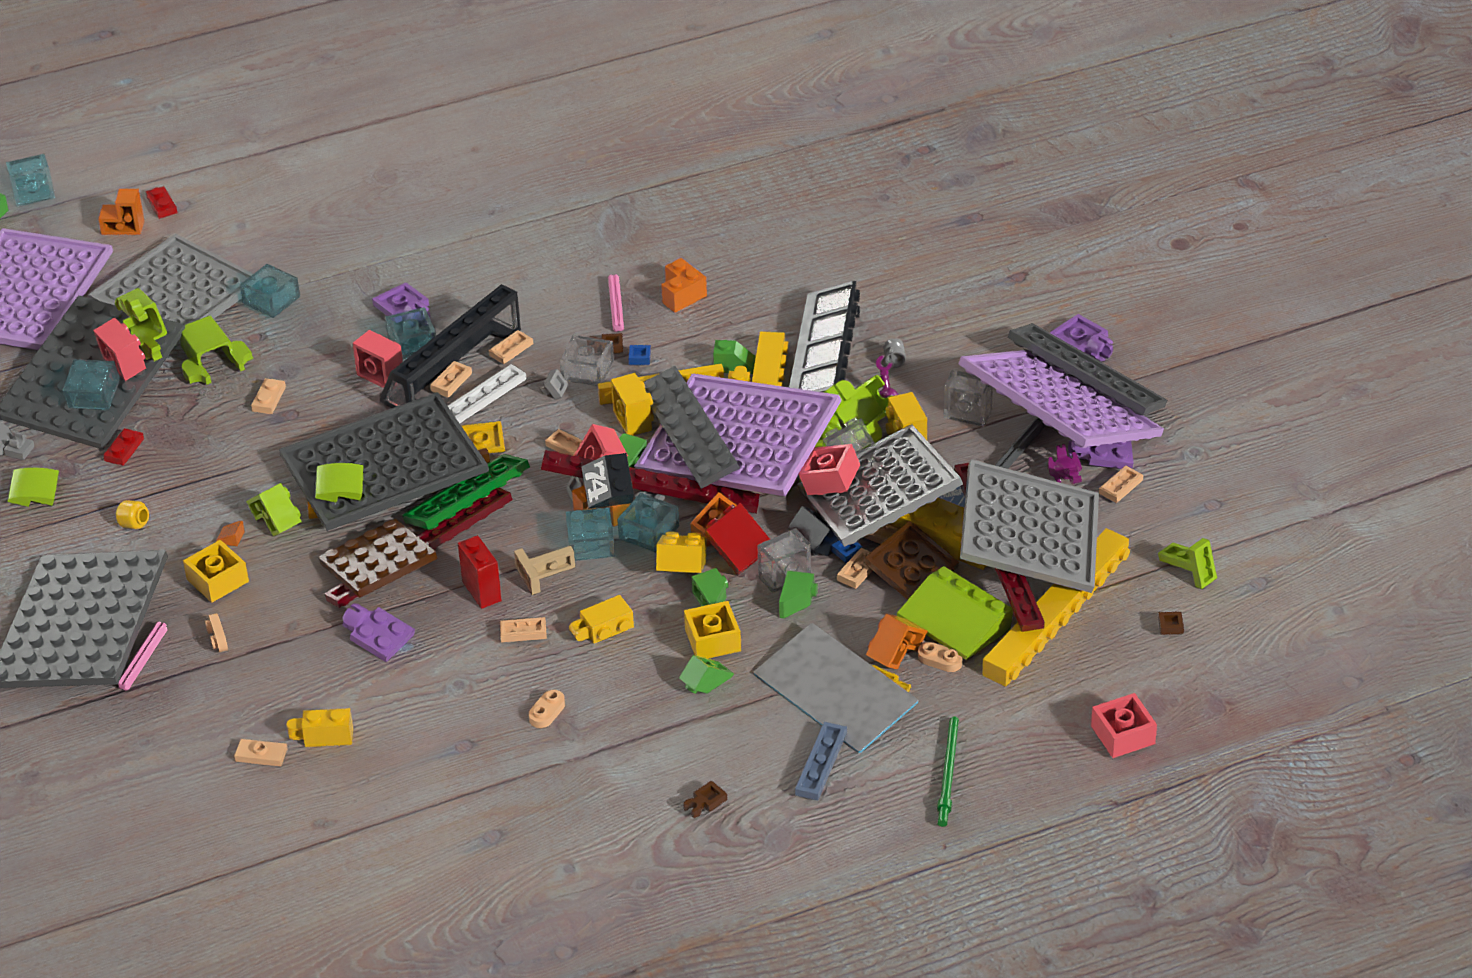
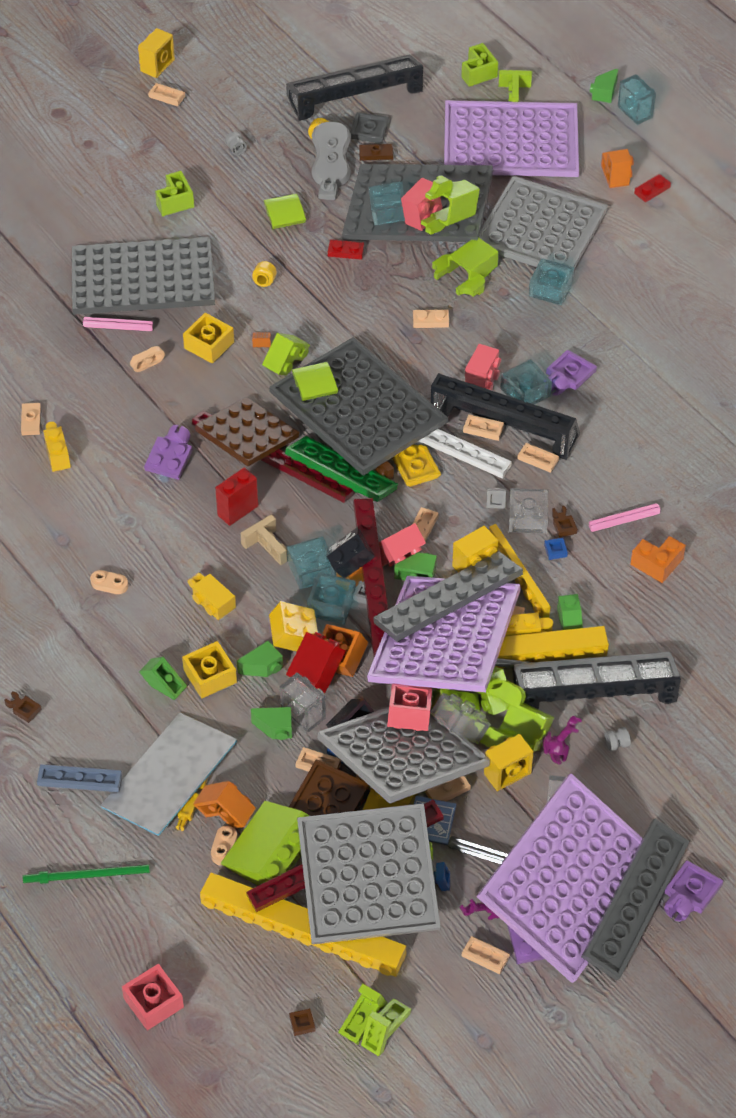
camera: 75 degrees right, 10 degrees up
(523, 629) = (192, 545): light nougat plate -> none
(1173, 572) = (355, 1023): none -> lime bracket

